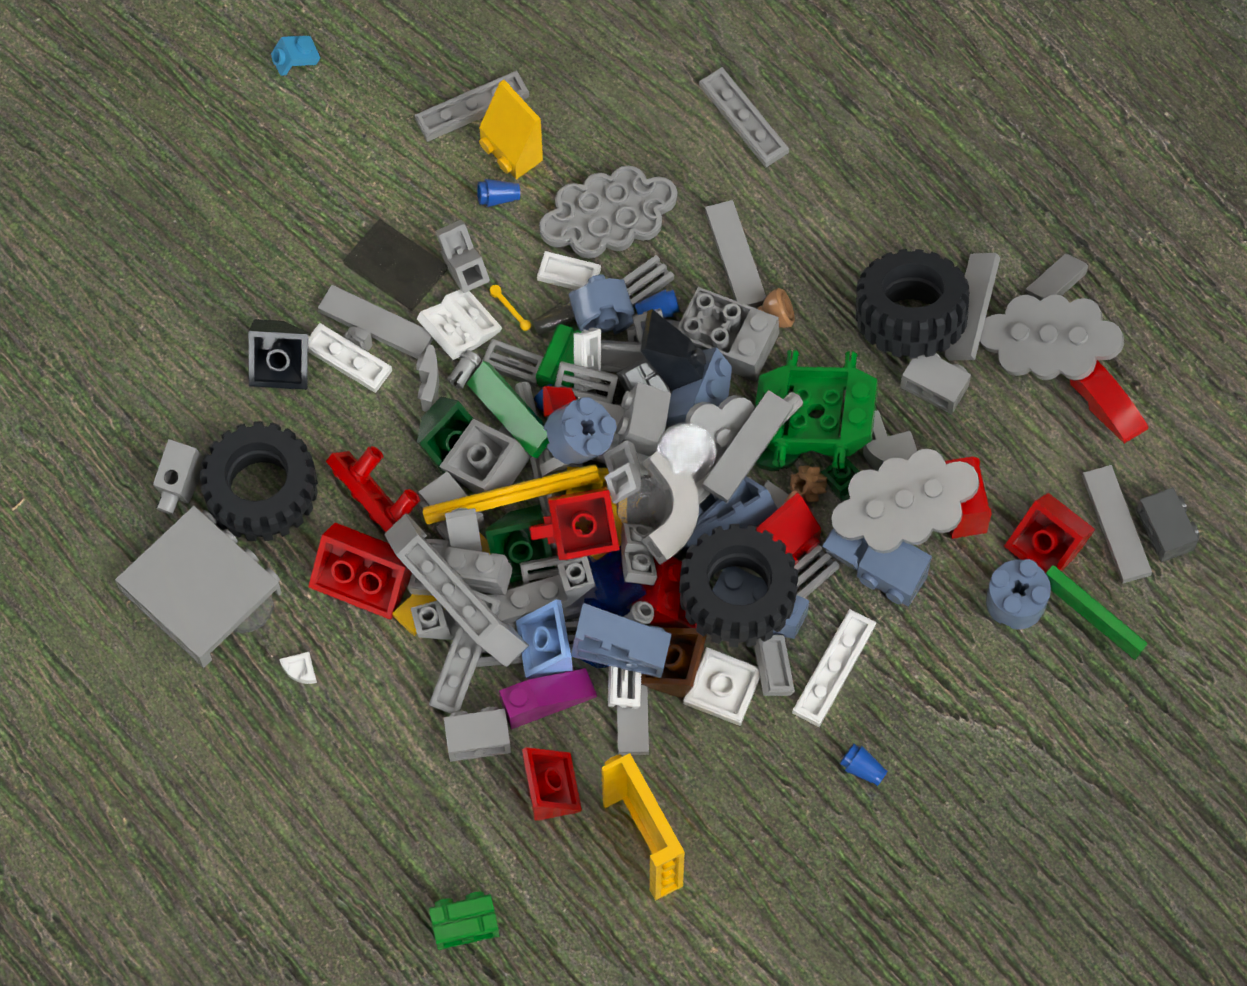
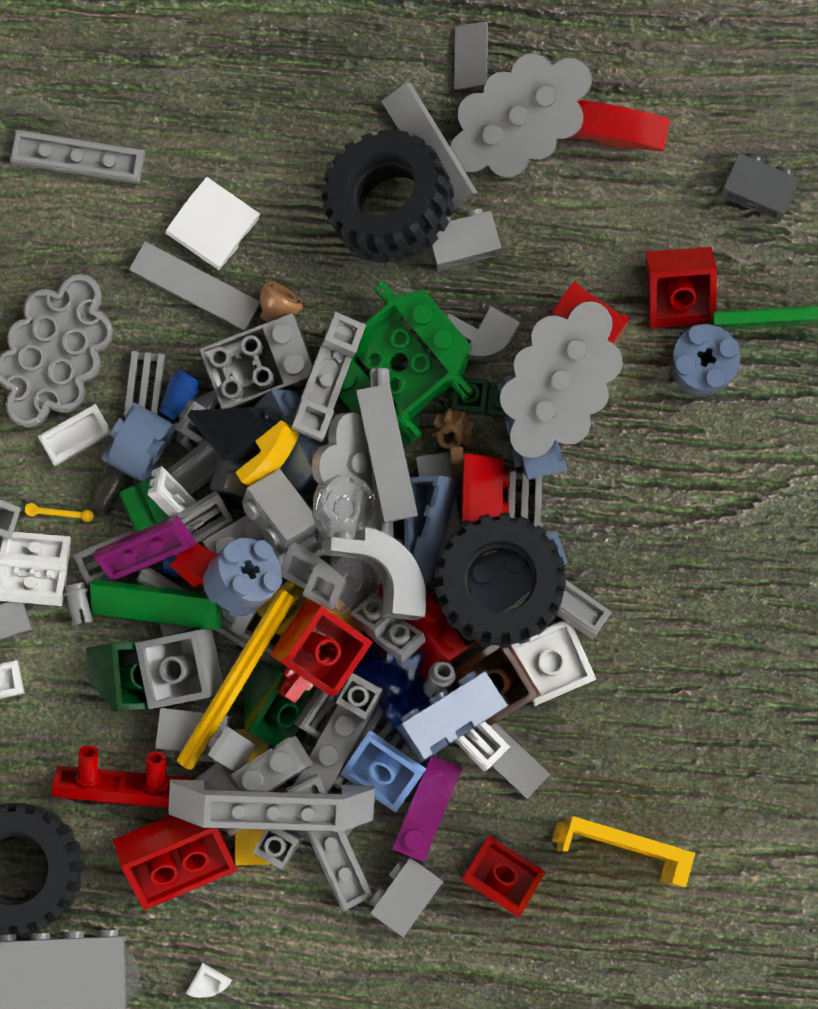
camera: 45 degrees left, 15 degrees up
(429, 377) = (52, 635): light grey slope -> none
(538, 366) = (144, 548): none -> magenta tile
(678, 378) = (275, 449): none -> yellow slope
(760, 371) = (327, 376): none -> light grey slope
(786, 228) = (212, 223): none -> white slope
(834, 668) = (621, 560): white tile -> none
(863, 765) = (721, 619): blue cone -> none
(895, 573) = (605, 439): sand blue slope -> none
(1116, 524) = (718, 223): light grey tile -> none

